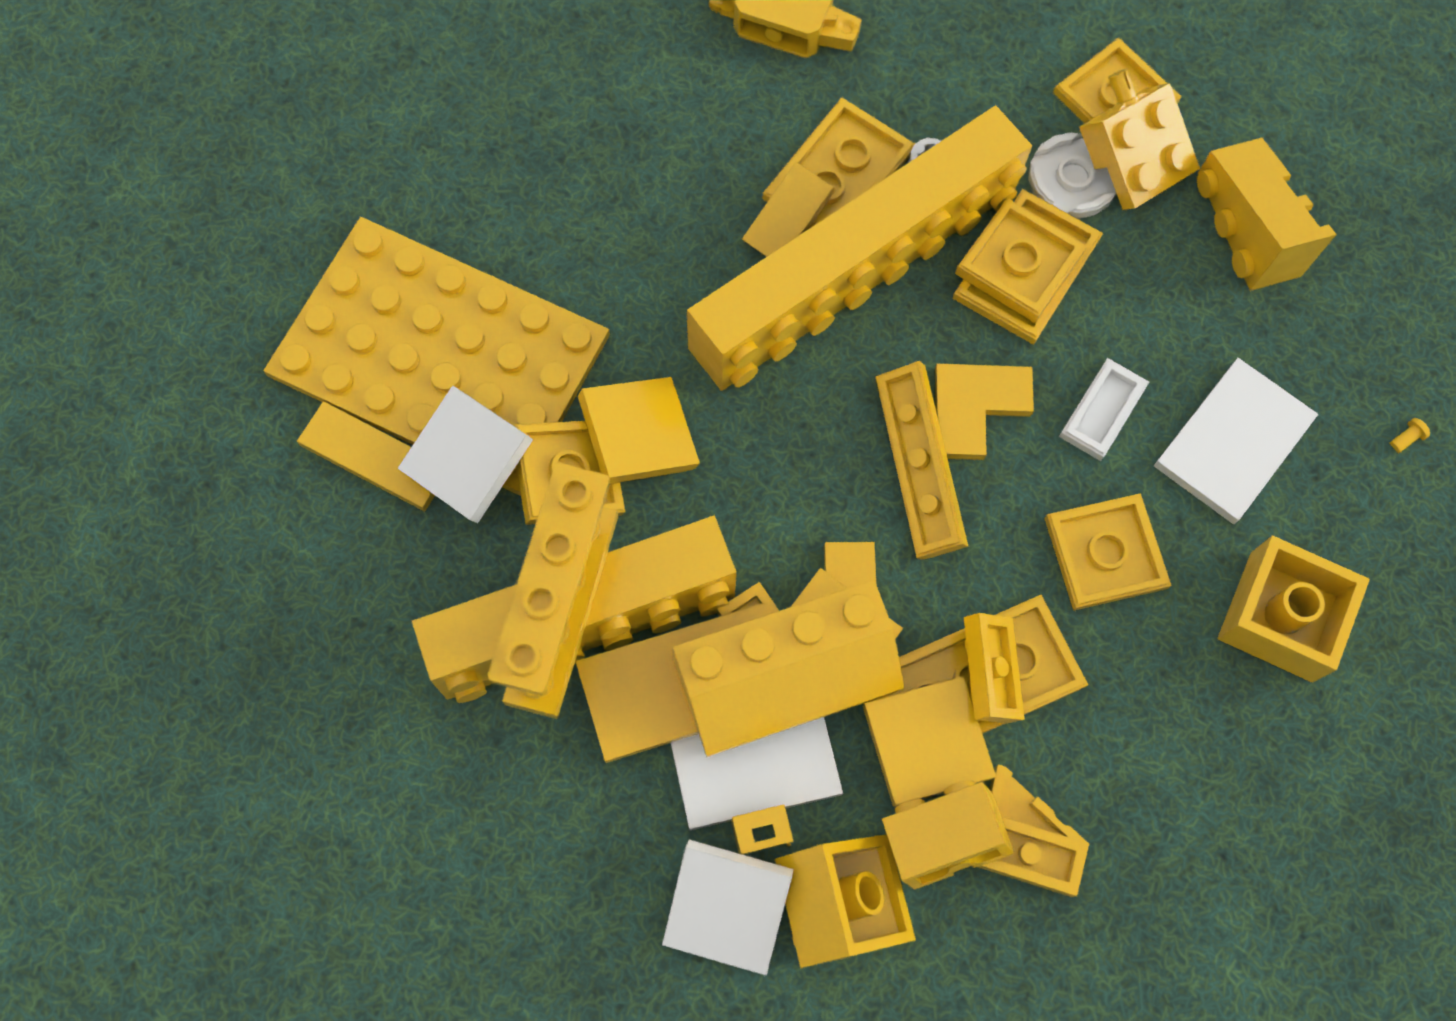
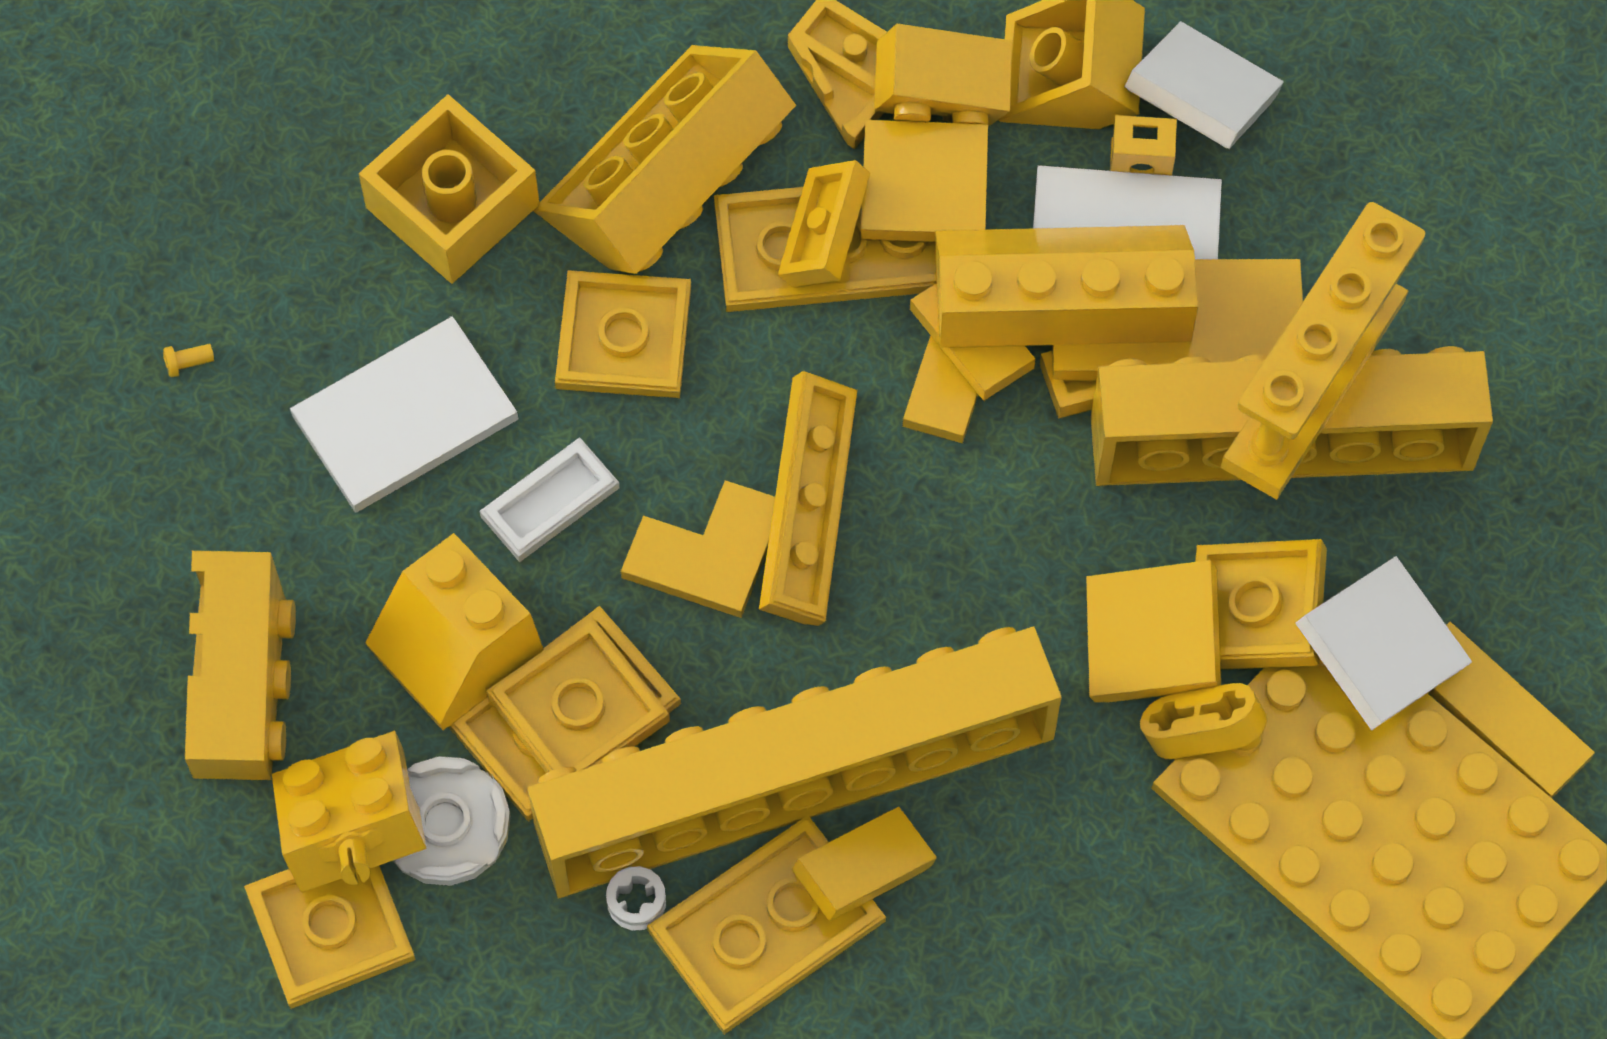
camera: 160 degrees left, 5 degrees down
(583, 360) = (1203, 721): none -> yellow beam
(1124, 286) = (452, 632): none -> yellow slope
(1139, 702) = (668, 156): none -> yellow slope

